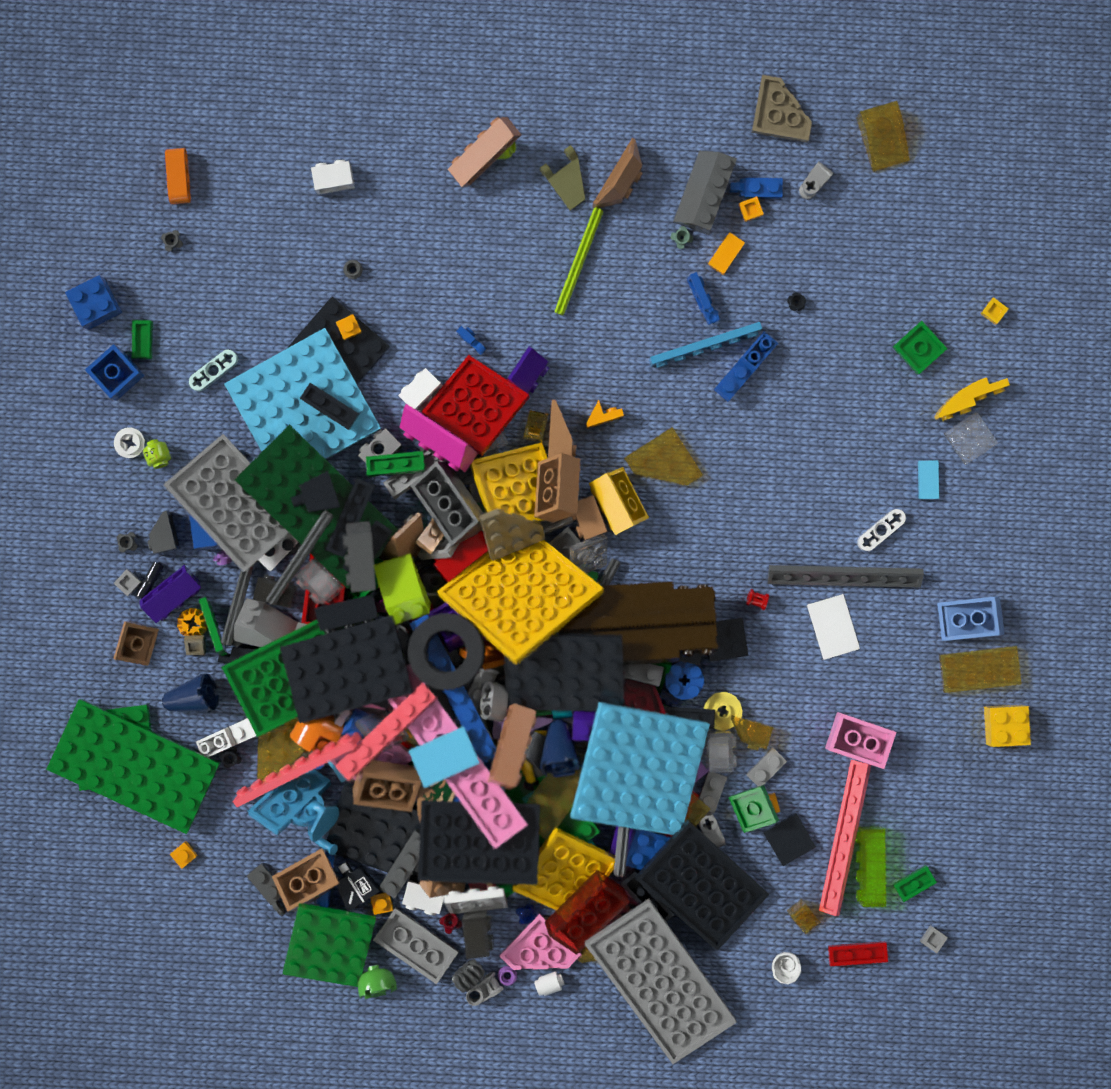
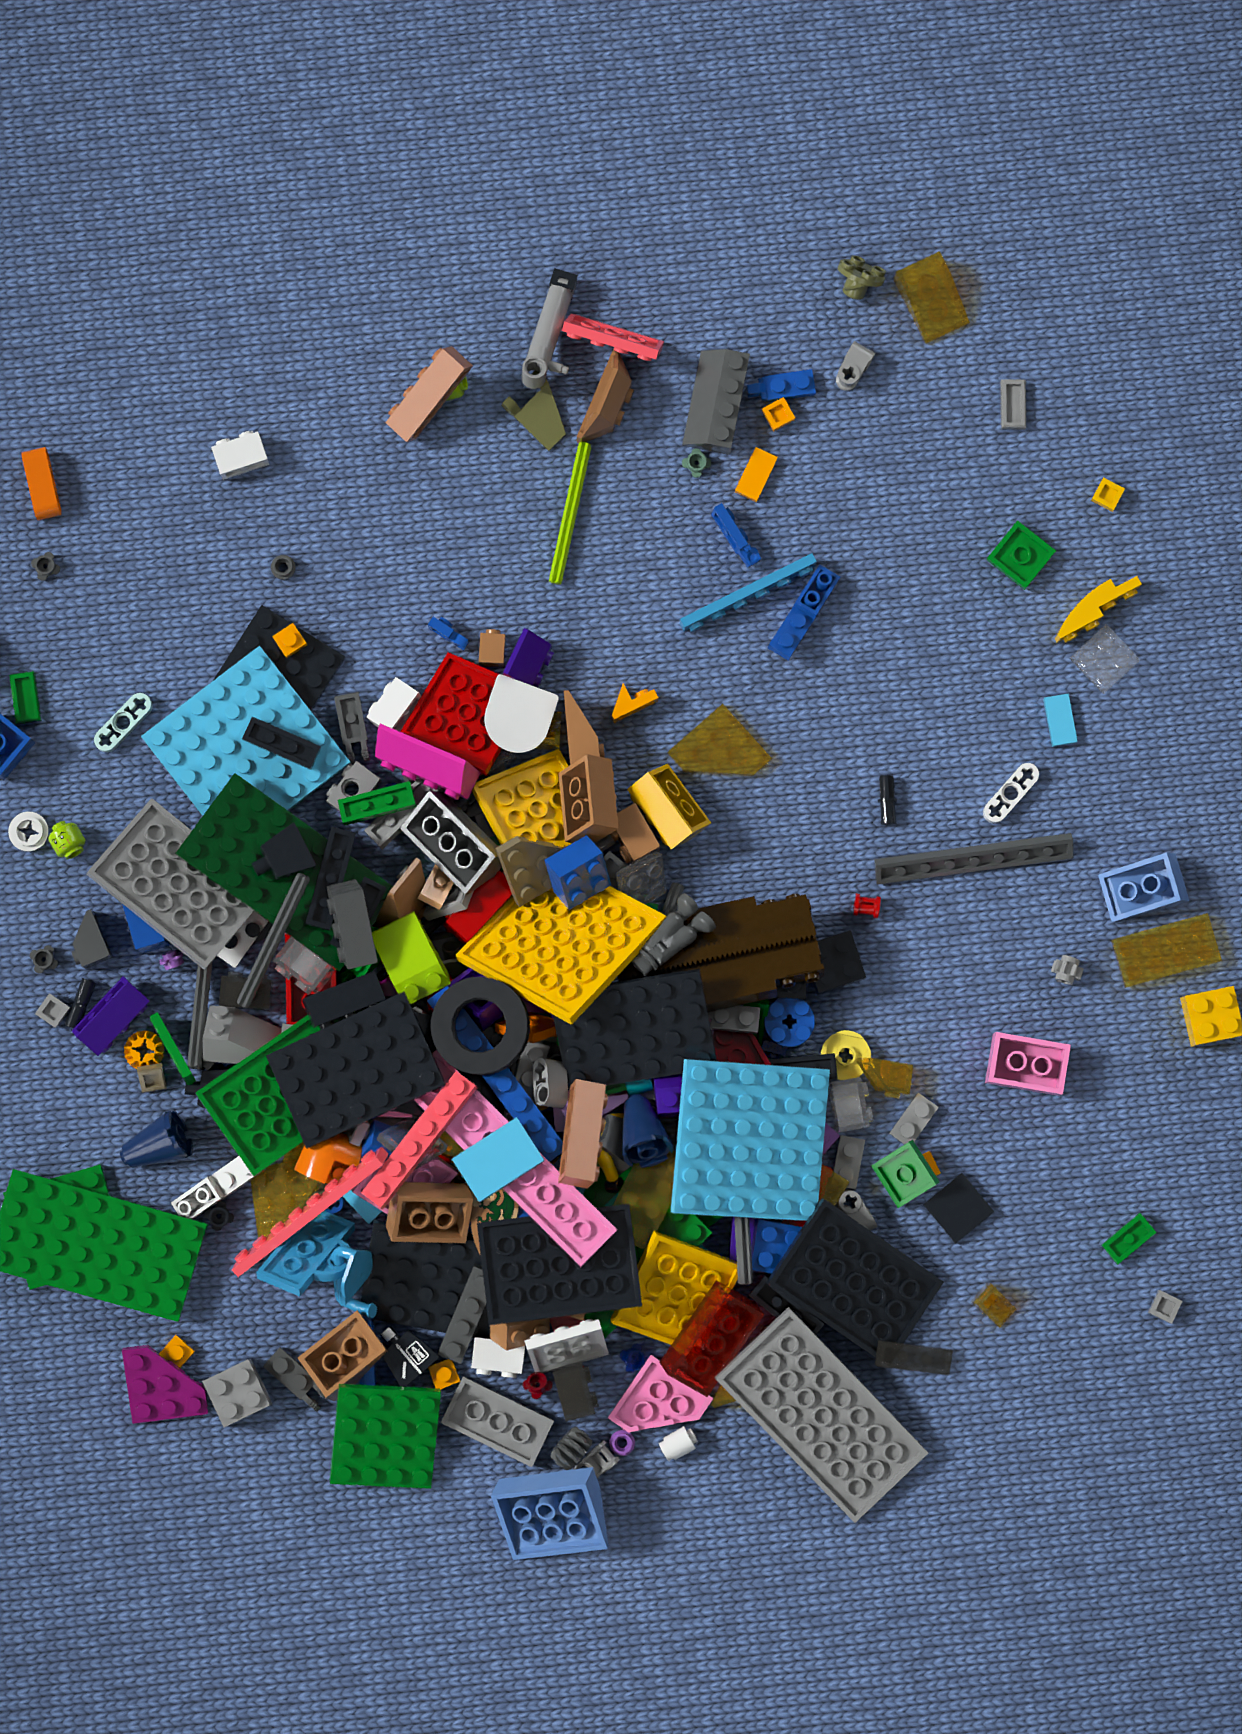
camera: 15 degrees left, 5 degrees down
(136, 643) = (76, 1086): medium nougat slope -> none
(166, 880) = (160, 1387): none -> magenta plate
(223, 893) = (237, 1392): none -> light grey brick
(376, 982) = (453, 1477): bright green cylinder -> none
(387, 399) = (352, 724): none -> dark grey hinge
(445, 1022) = (551, 1513): none -> medium blue slope
(502, 357) = (492, 648): none -> medium nougat brick
(514, 412) = (518, 714): none -> white sticker
(540, 542) = (577, 872): none -> blue brick
(585, 113) = (539, 356): none -> light grey piece
(605, 604) = (673, 935): none -> dark grey piece
(639, 132) = (621, 339): none -> coral plate
(737, 947) = (913, 1357): none -> clear smoke tile
(779, 112) = (795, 288): dark tan plate -> none
(786, 520) = (887, 800): none -> black axle
(786, 967) = (981, 1373): white hair -> none
(801, 301) = (855, 515): black plate -> none
(831, 111) = (860, 276): none -> olive plate
(833, 626) = (970, 926): white sticker -> none
(845, 837) = (1029, 1193): coral plate -> none
(857, 953) = (1070, 1341): red plate -> none
(871, 866) = (1069, 1225): clear neon green brick -> none
(902, 672) = (1067, 970): none -> light grey gear
(932, 229) = (1013, 404): none -> light grey tile

